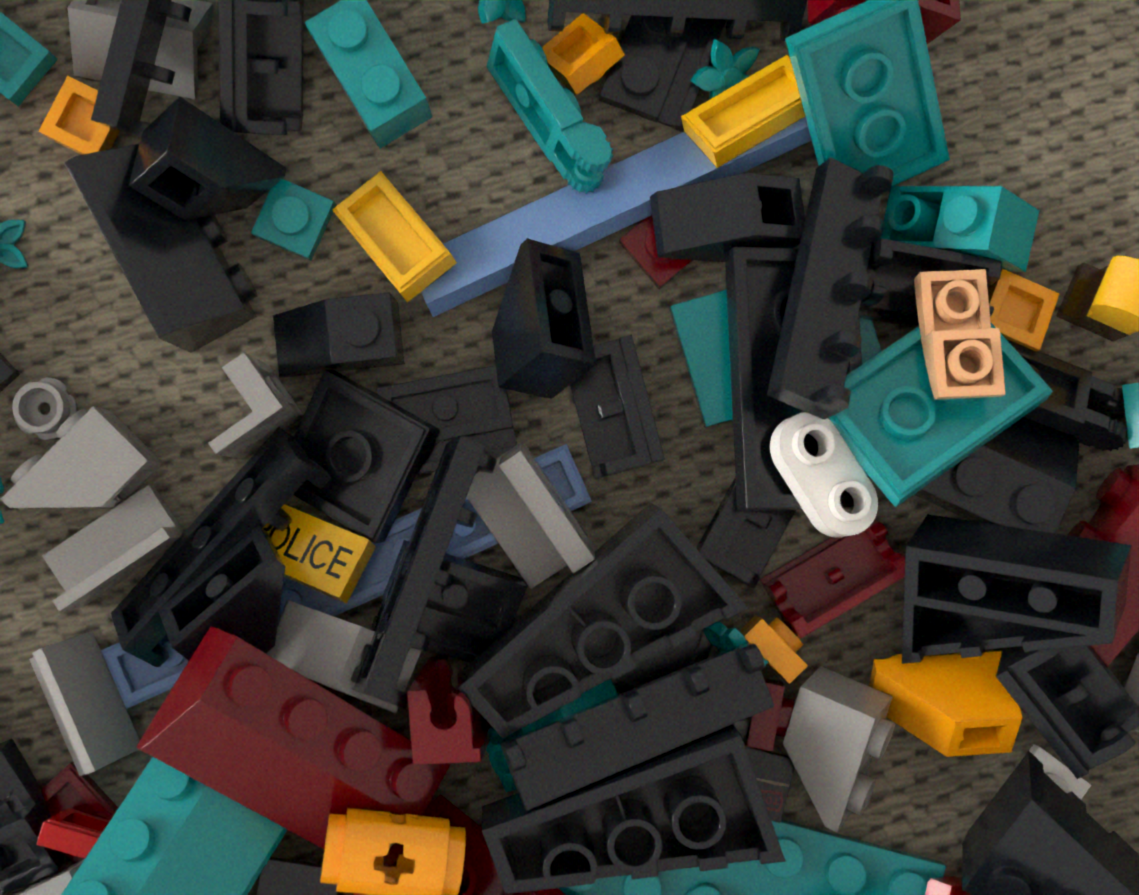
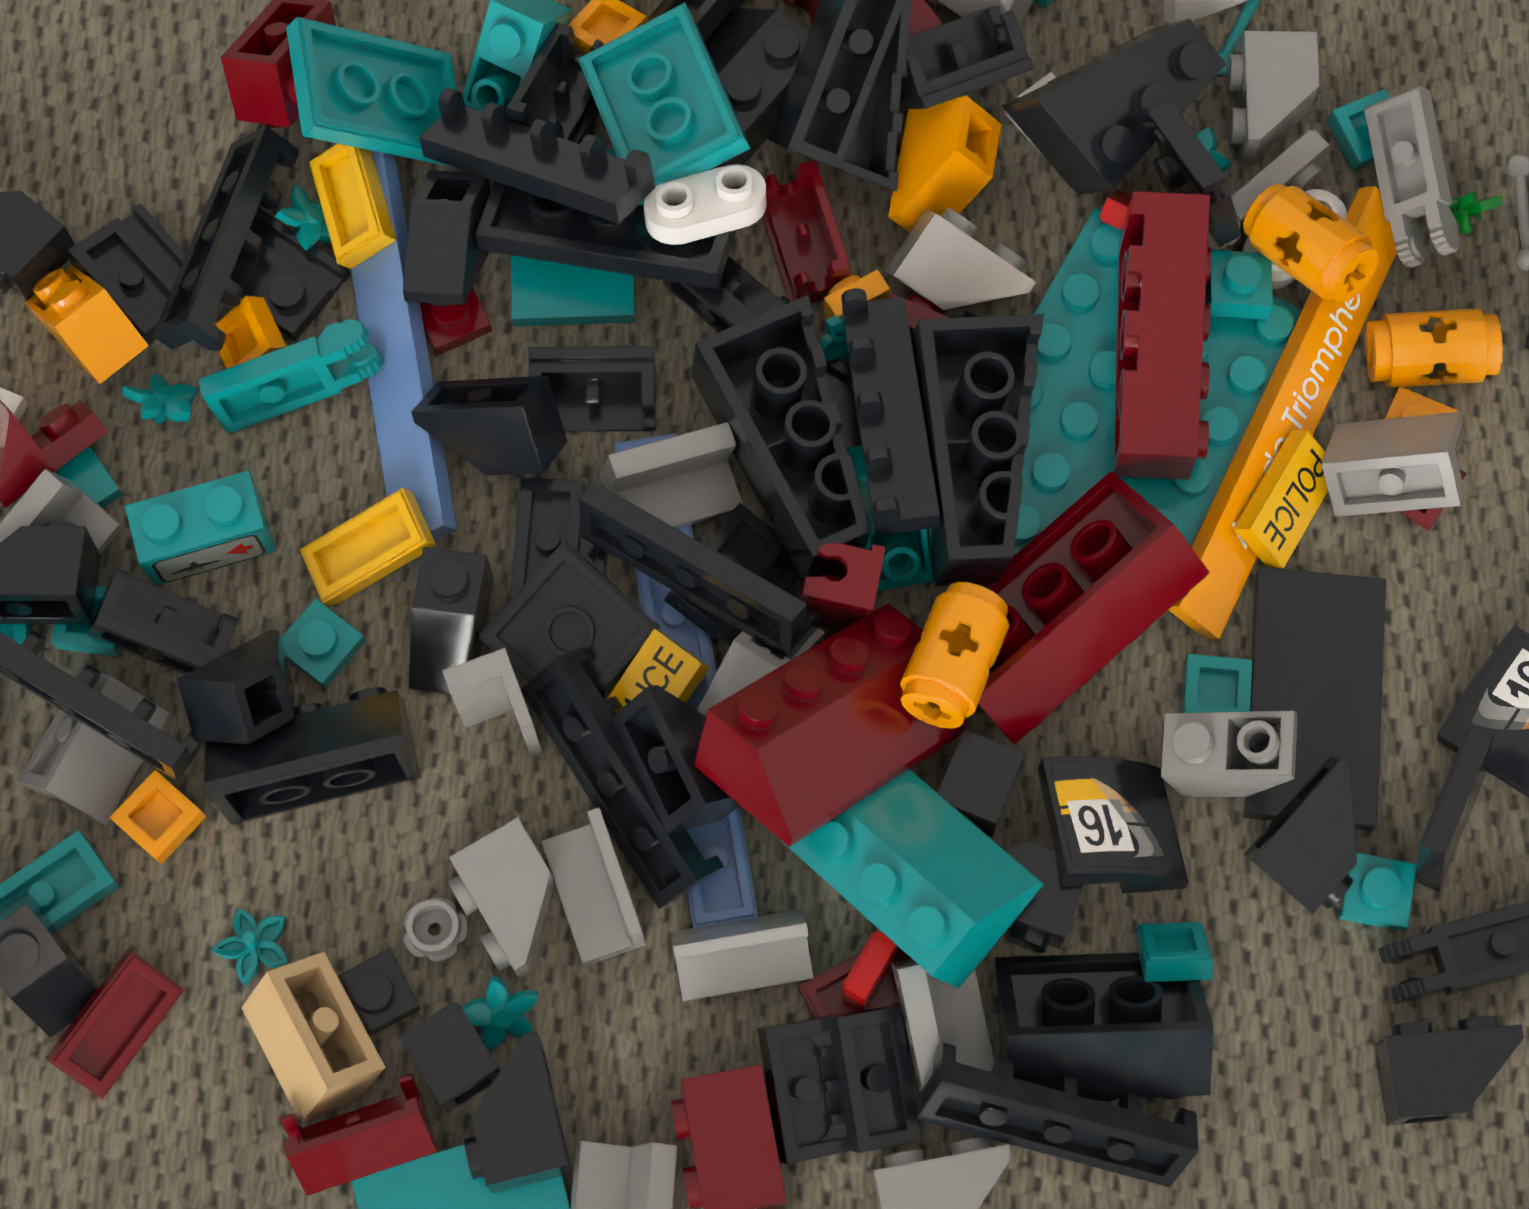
camera: 75 degrees left, 15 degrees down
(957, 335) = (614, 67): light nougat slope -> none

